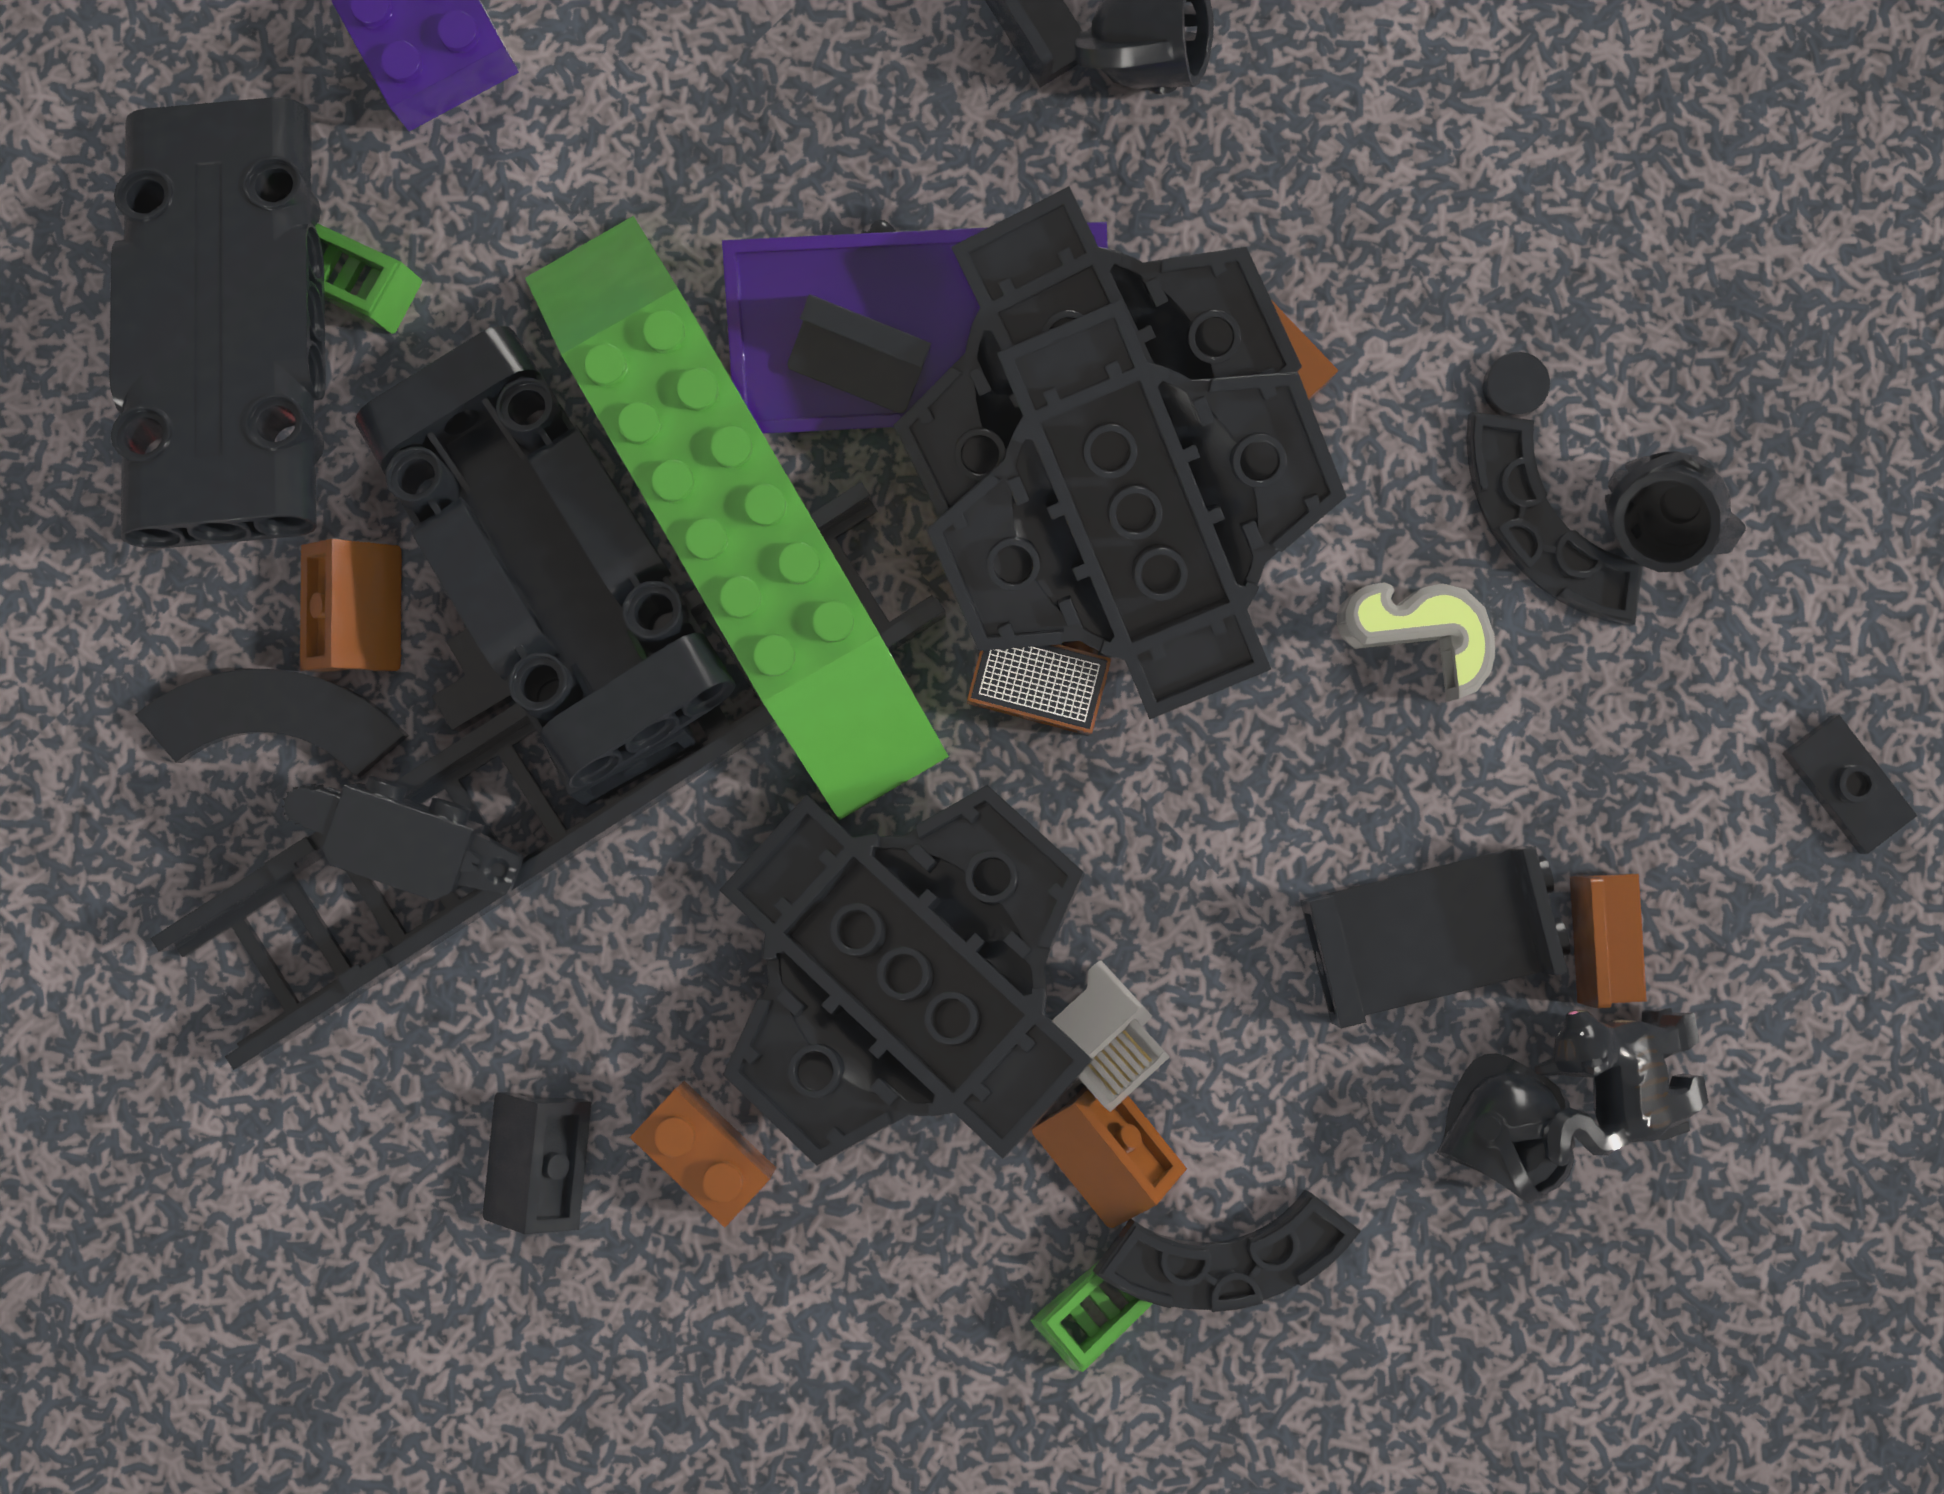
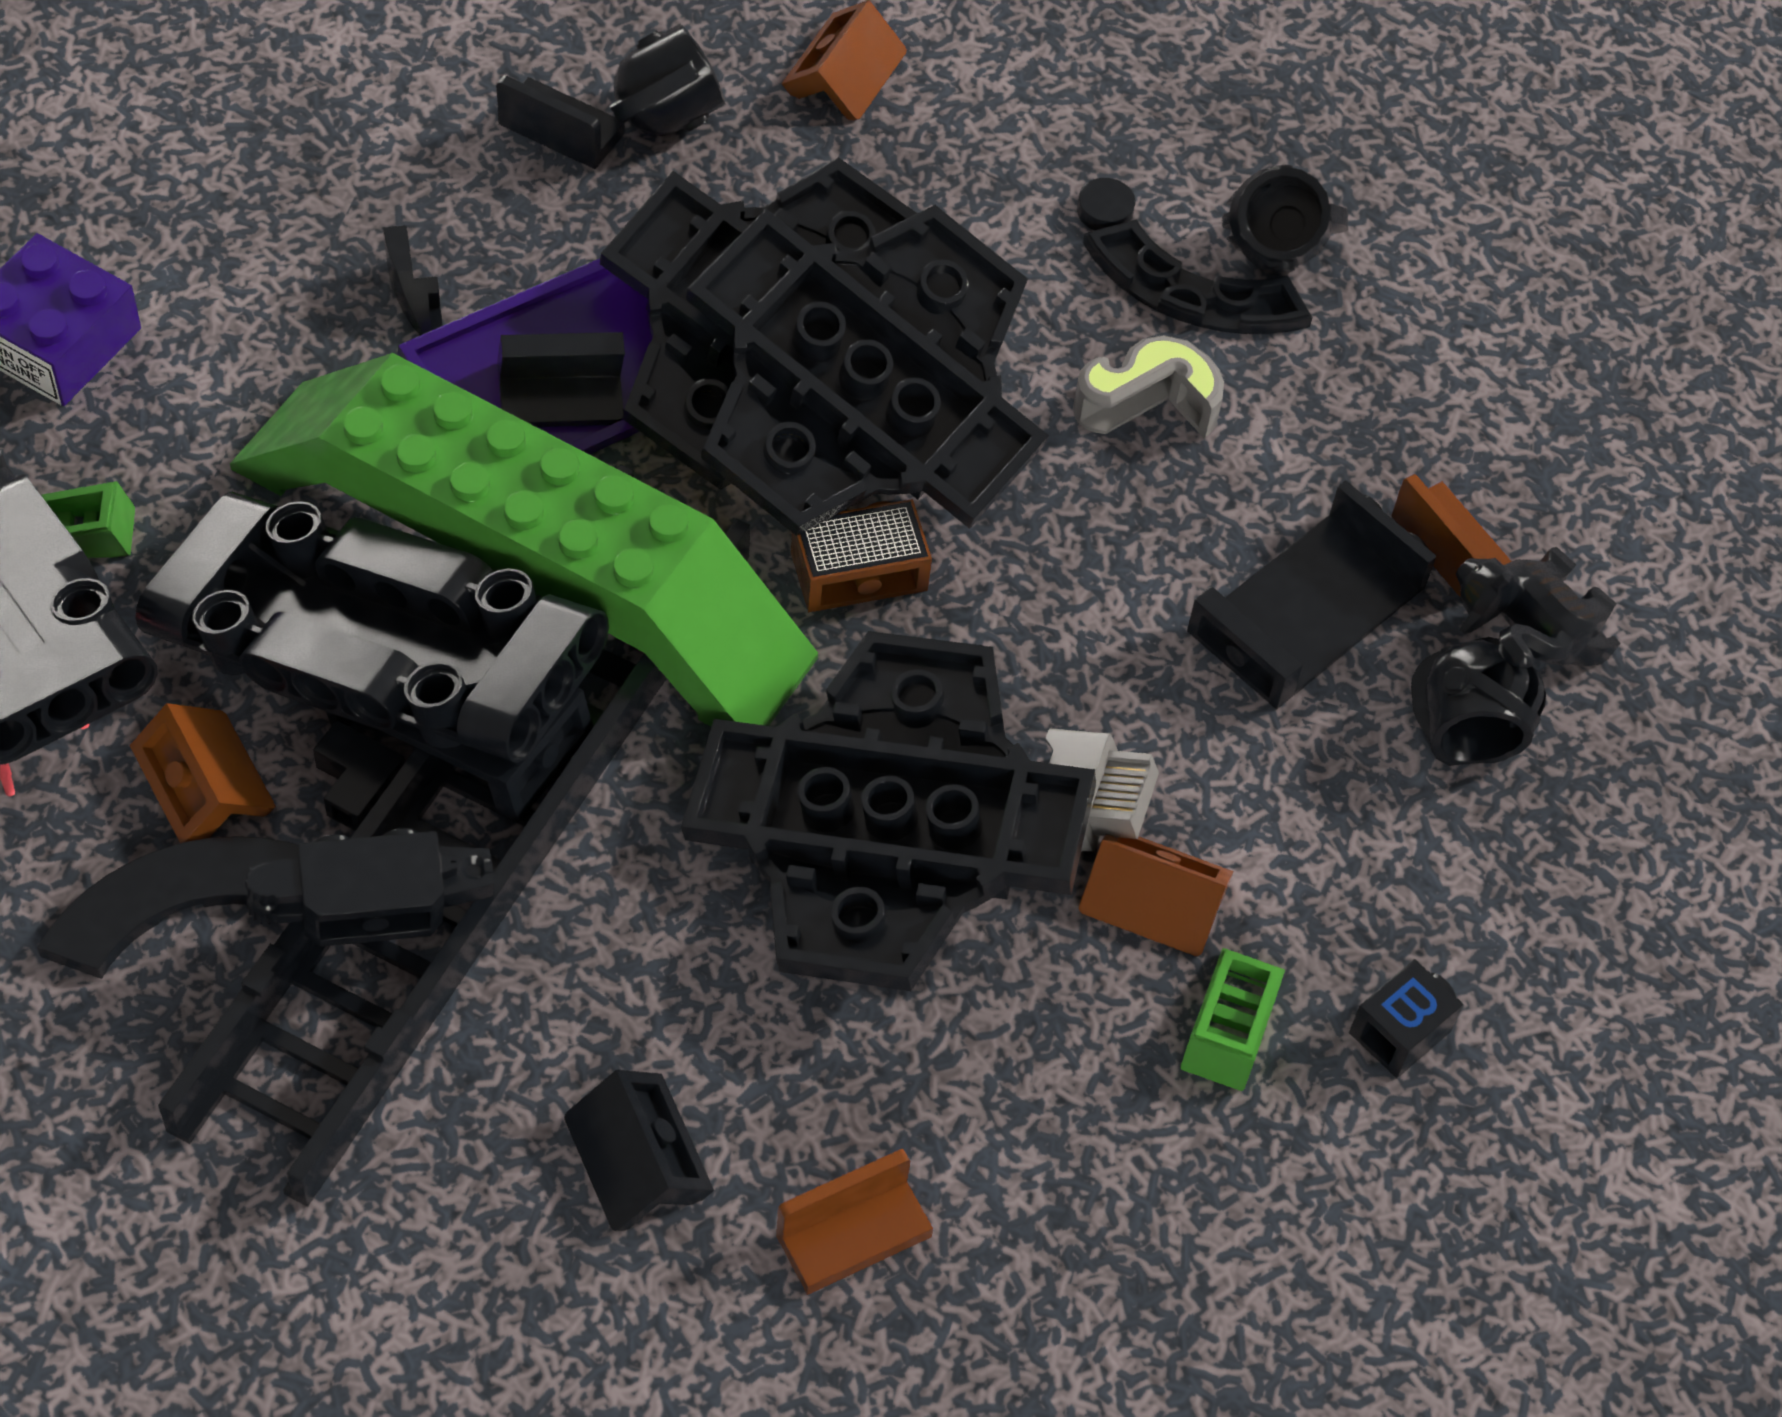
camera: 30 degrees left, 30 degrees down
(671, 1325) = (851, 1222): none -> dark orange panel
(703, 1153) = (795, 1051): dark orange brick -> none
(785, 178) = (416, 296): none -> black slope
(1230, 1271) = (1324, 934): black tile -> none
(1246, 1394) = (1406, 1017): none -> black brick
(1359, 76) = (848, 60): none -> dark orange panel
(1849, 784) = (1555, 354): black plate -> none

